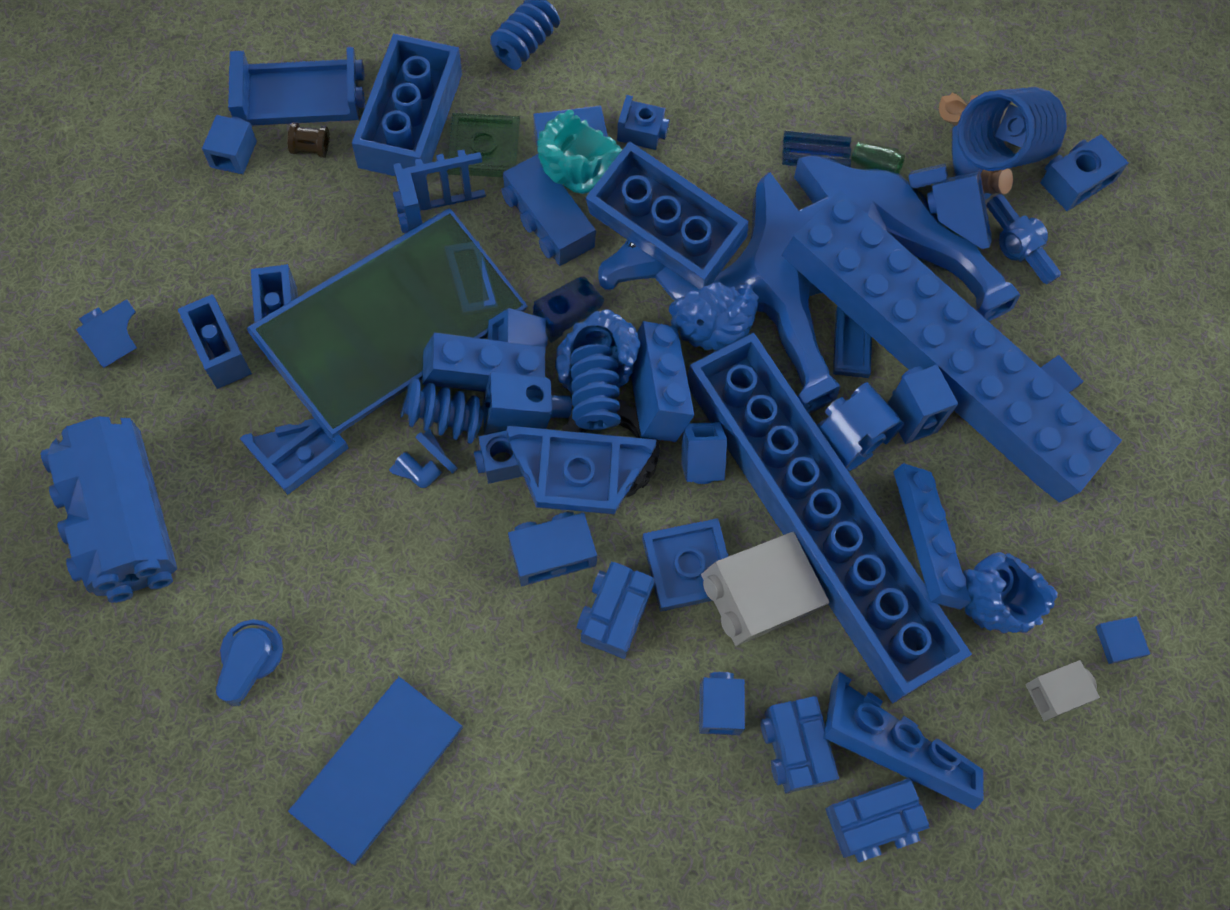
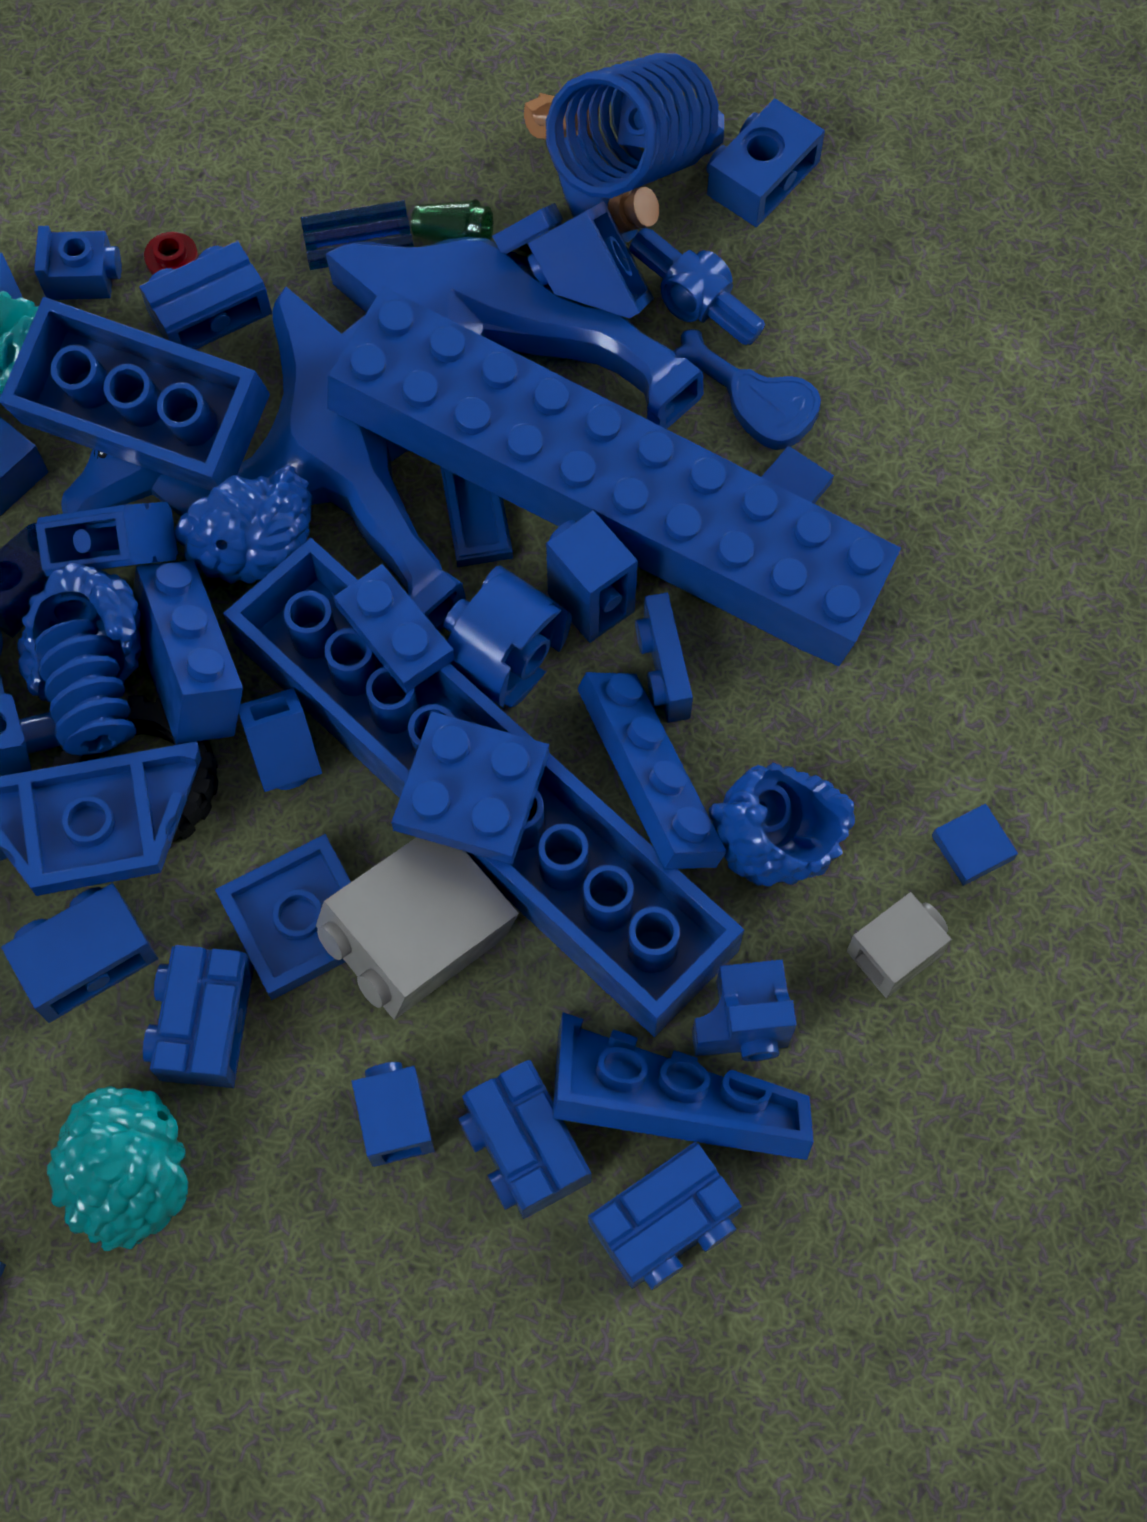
camera: 10 degrees left, 0 degrees up
(547, 688) = (118, 1167): none -> teal hair
(629, 298) = (107, 537): none -> blue brick
(697, 140) = (166, 242): none -> dark red plate
(718, 164) = (206, 297): none -> blue brick
(794, 403) = (394, 628): none -> blue plate
(821, 516) = (471, 787): none -> blue plate
(953, 481) = (659, 636): none -> blue plate
(959, 706) = (751, 1013): none -> blue brick
(1051, 328) = (769, 409): none -> blue piece

